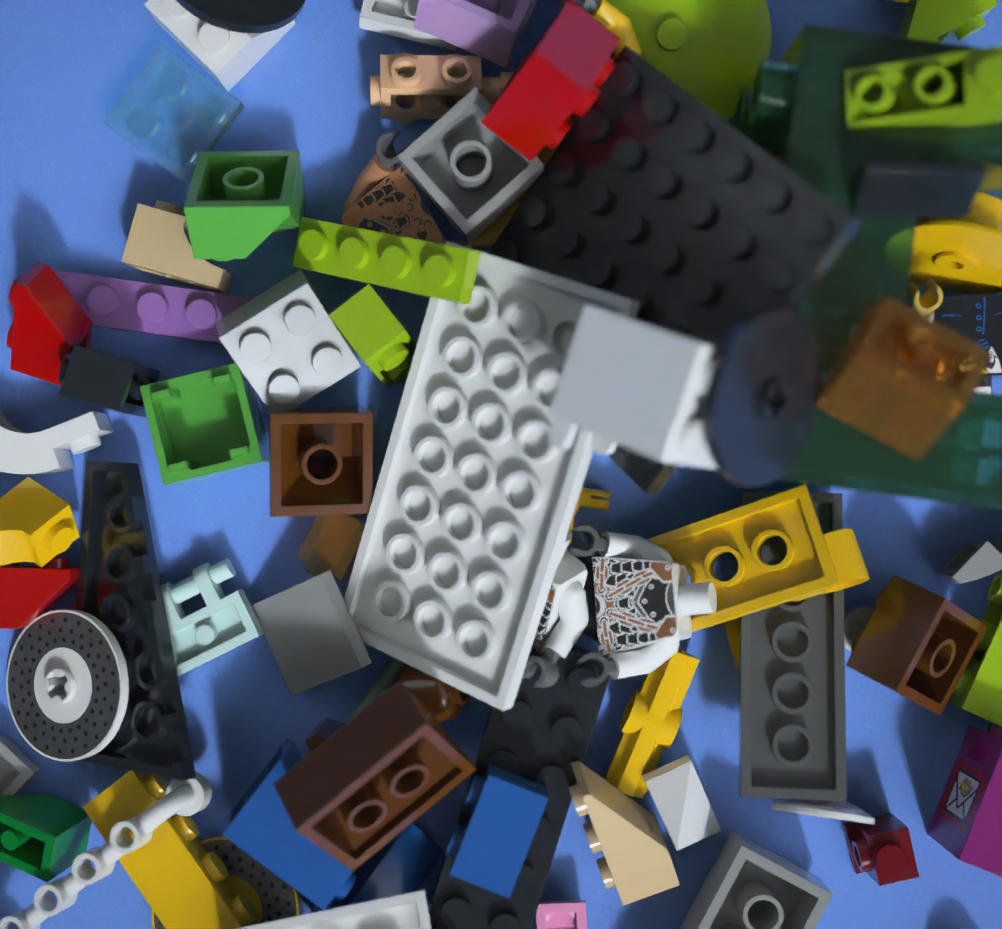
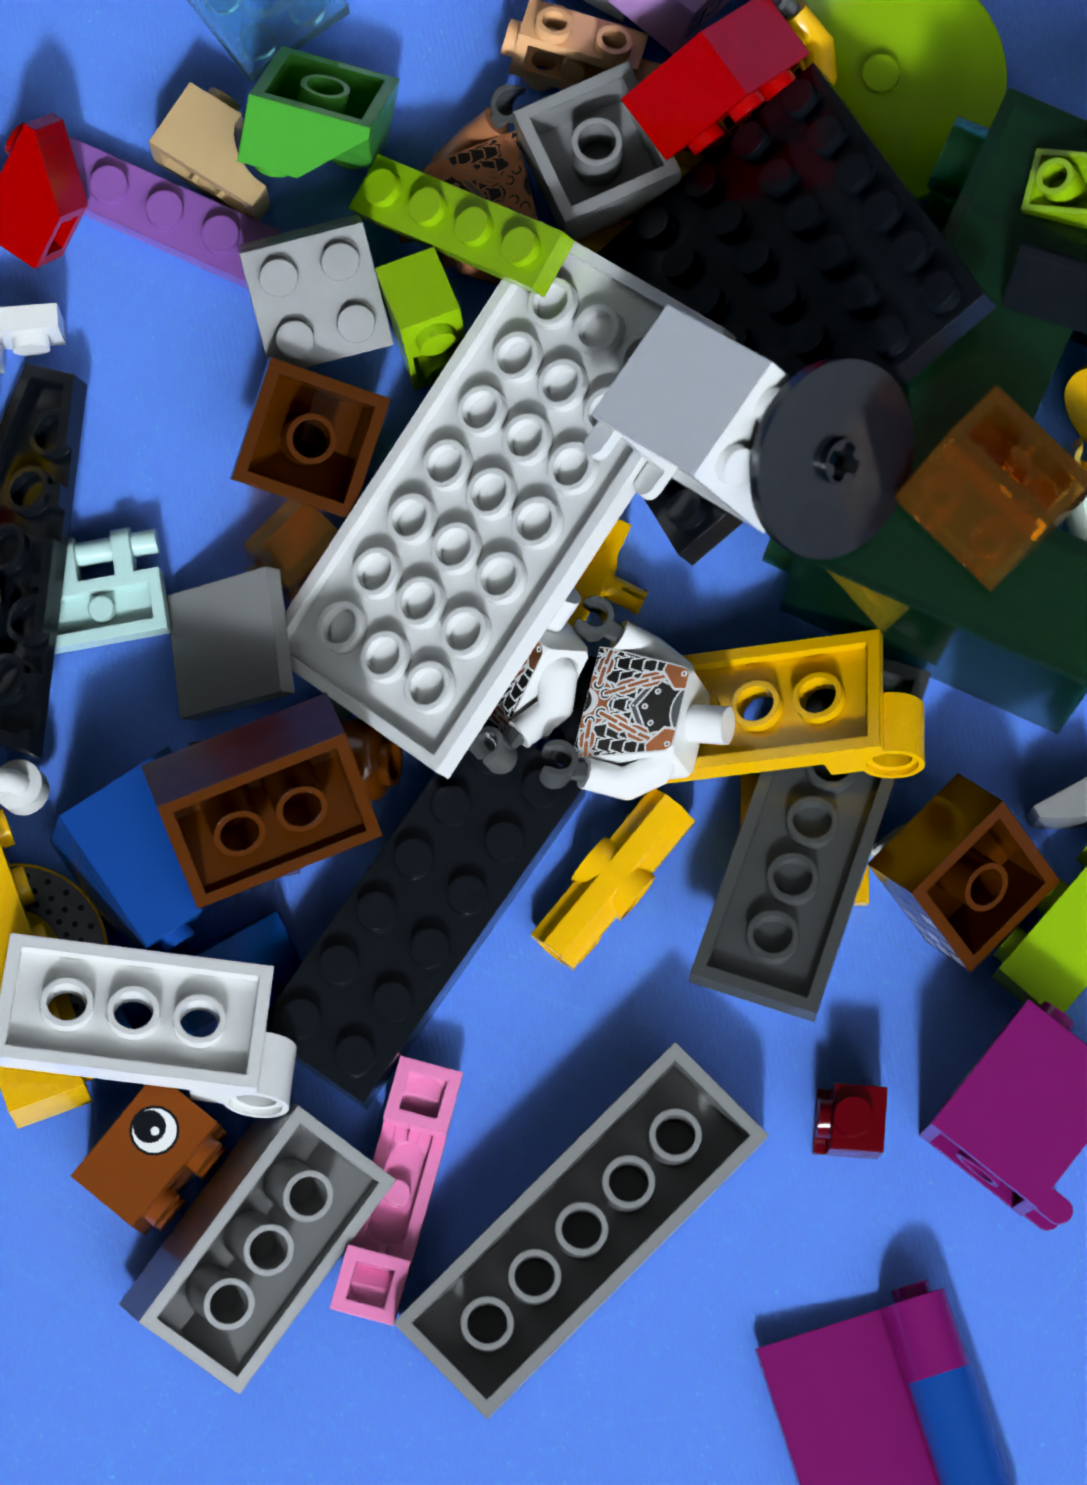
camera: 20 degrees right, 10 degrees down
(105, 380) = (88, 273): black brick -> none
(205, 424) = (184, 363): bright green container -> none
(497, 830) = (384, 917): blue brick -> none
(628, 836) = (541, 1004): tan slope -> none
(682, 802) = (620, 990): white slope -> none
(823, 808) = (789, 1043): white dish -> none

